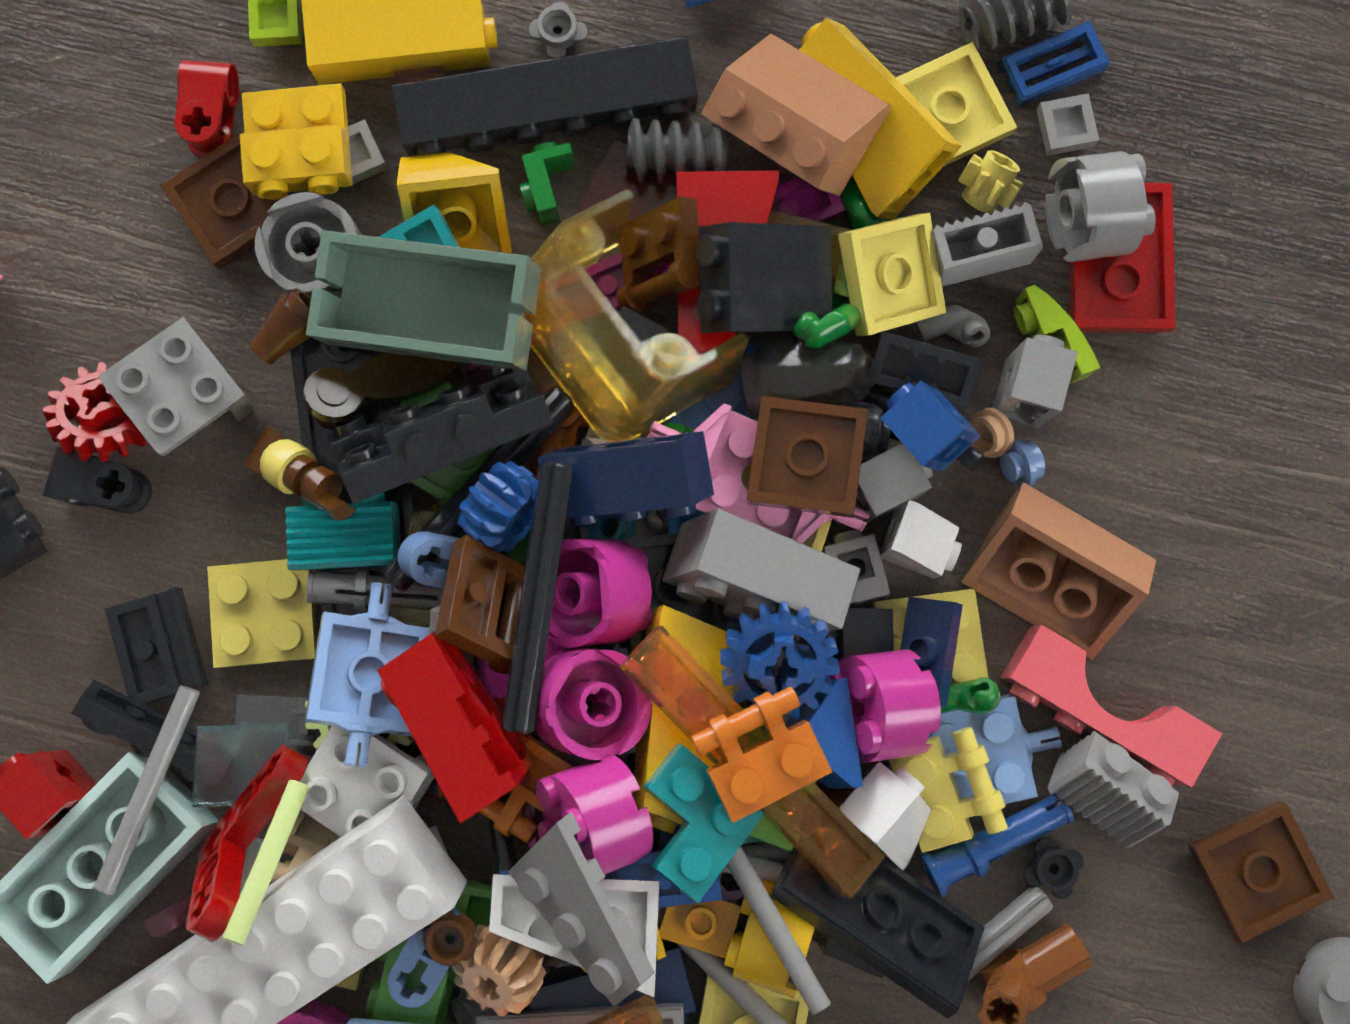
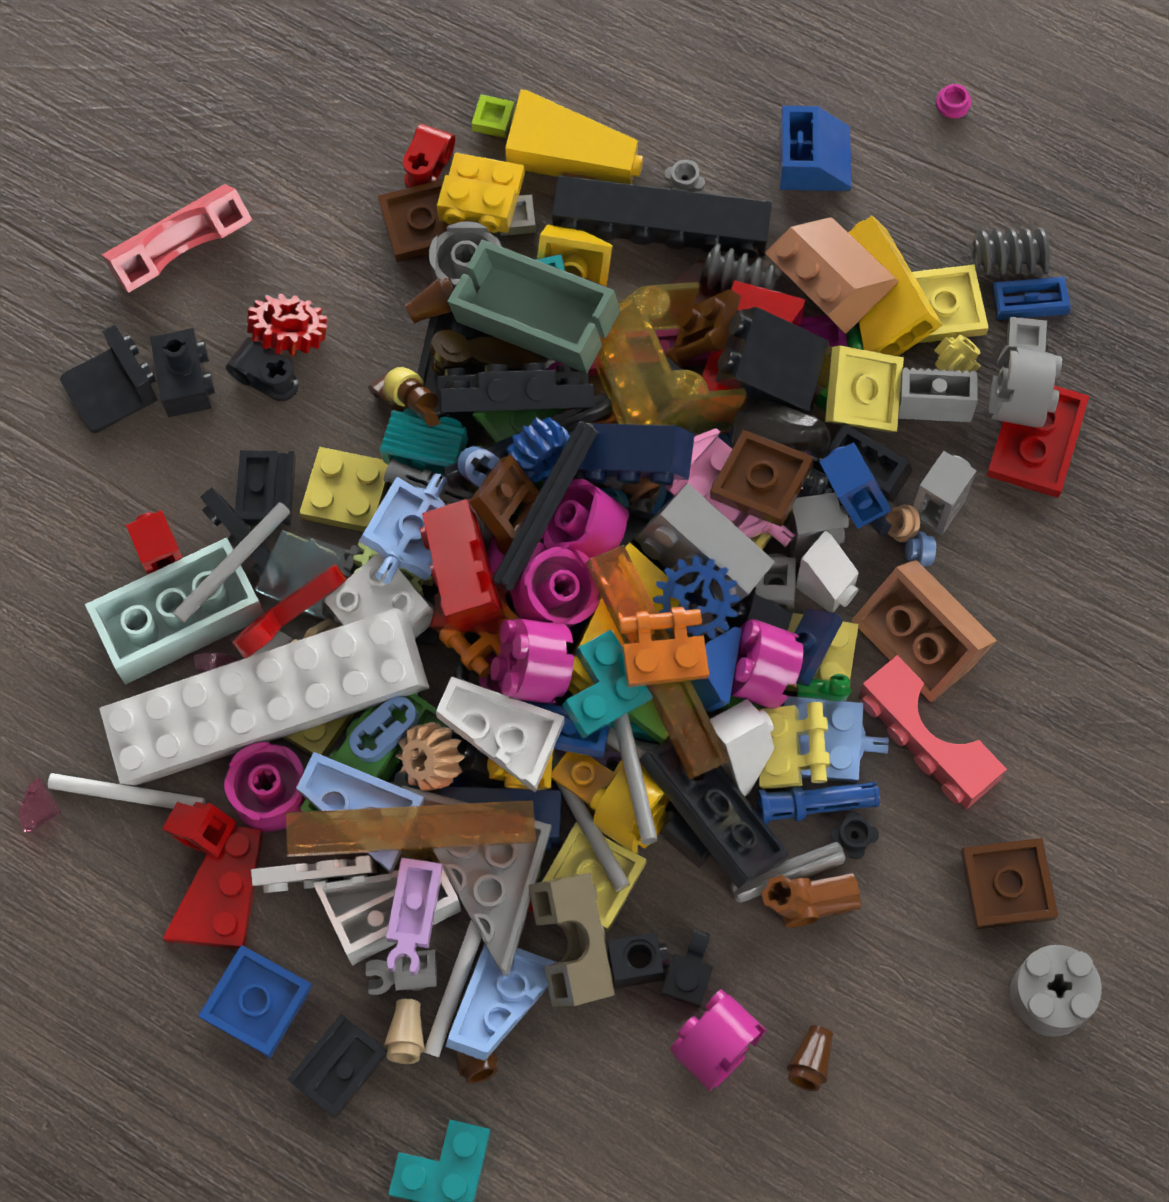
camera: 20 degrees right, 15 degrees down
(174, 388) = (344, 320): light grey bracket -> none
(265, 863) = (300, 621): yellowish green bar -> none
(450, 953) = (399, 705): reddish brown plate -> none
(539, 164) = (643, 257): green bracket -> none
(571, 901) = (501, 699): light grey wing -> none
(831, 327) = (804, 401): green arm -> none
(956, 323) = (904, 445): light grey arm -> none
(1042, 315) = (982, 487): lime slope -> none
(1113, 790) = (914, 785): light grey brick -> none

